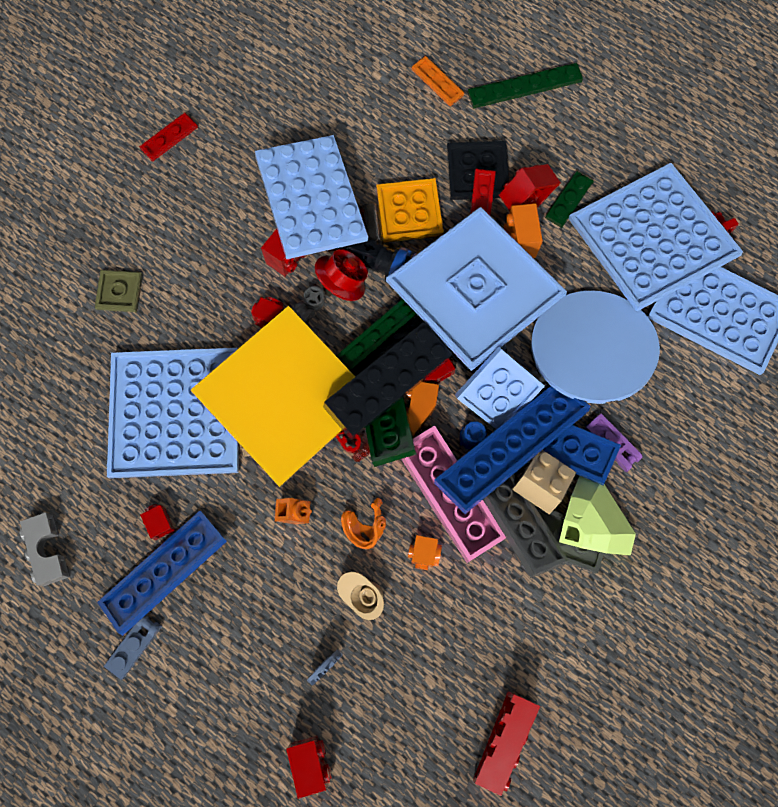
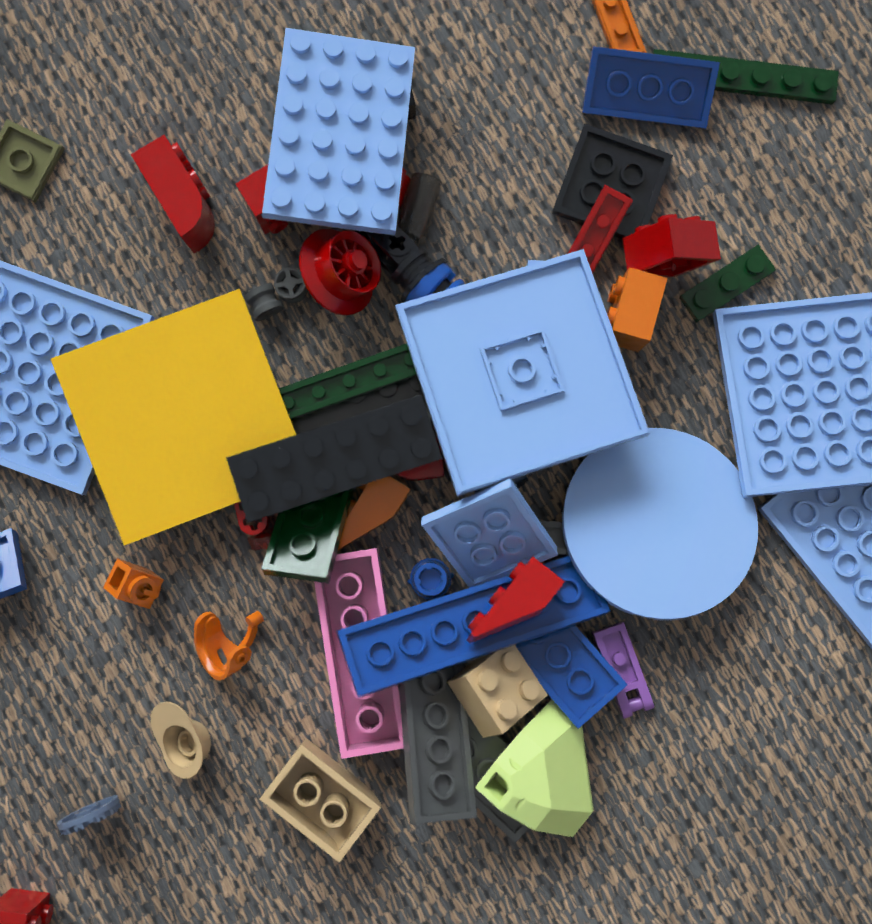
camera: 20 degrees right, 10 degrees up
(224, 268) = (177, 190): none -> red brick
(266, 310) = (214, 278): red brick -> none
(409, 210) = (484, 206): light orange plate -> none
(425, 552) = (291, 715): orange brick -> none
(467, 594) = (322, 800): none -> tan brick
(475, 109) = (650, 87): none -> blue plate
(537, 418) = (524, 598): none -> red slope

